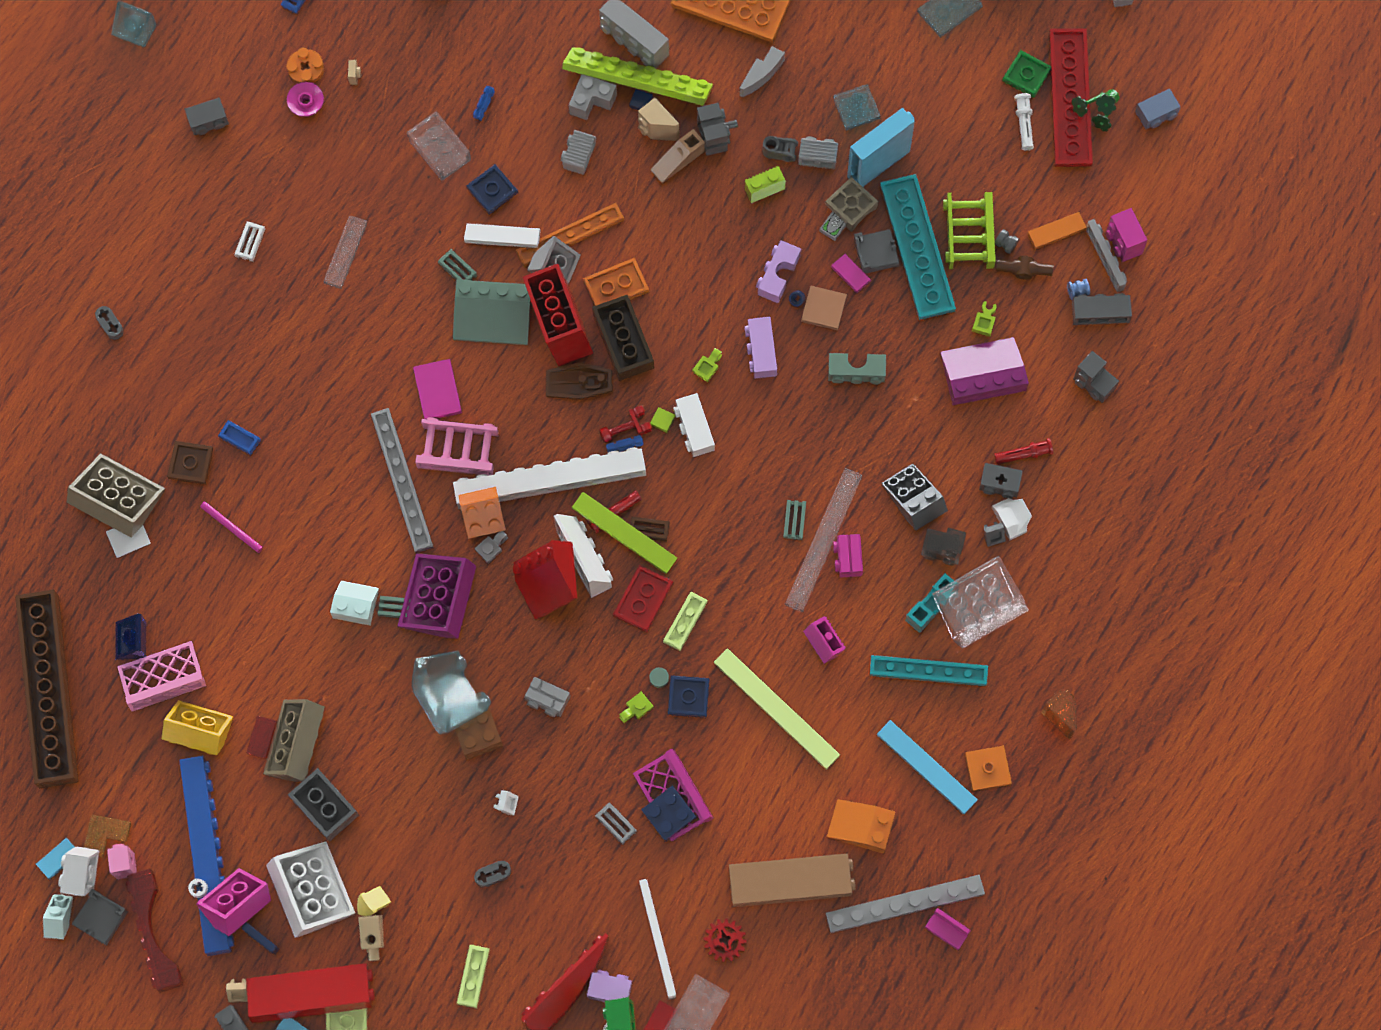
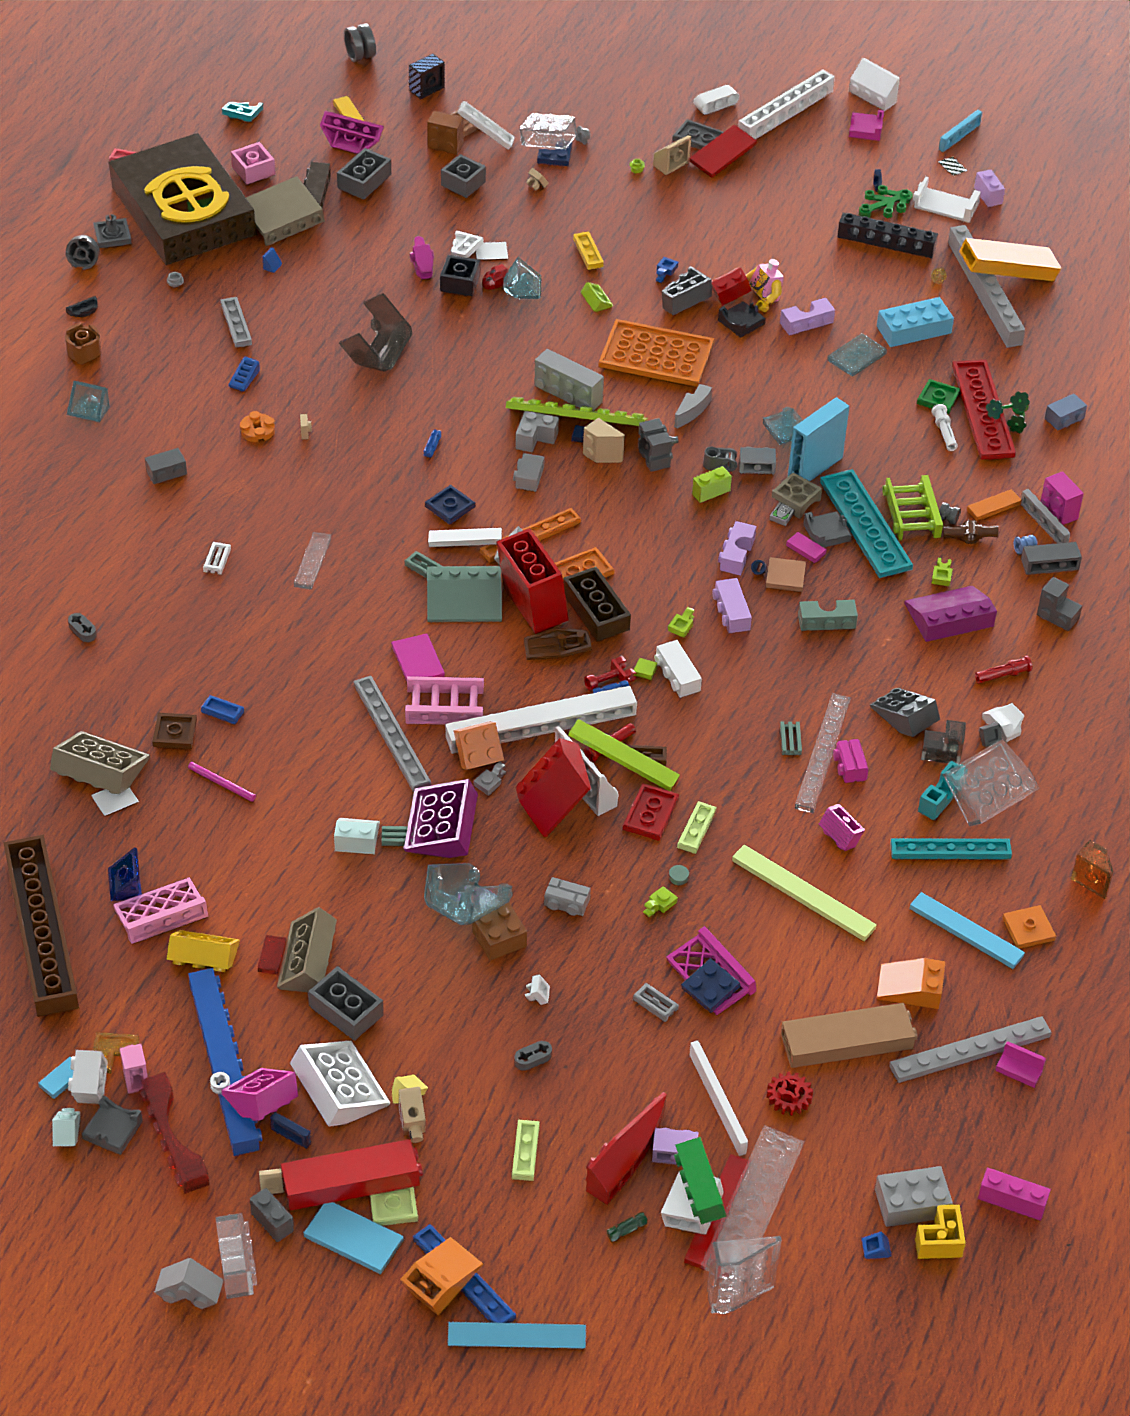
camera: 10 degrees left, 25 degrees down
(302, 92) = (260, 448): dark pink dish -> none
(439, 146) = (395, 472): clear brick -> none
(679, 156) = (627, 467): medium nougat slope -> none
(688, 696) = (712, 887): dark blue plate -> none
(1010, 480) = (986, 692): dark grey brick -> none

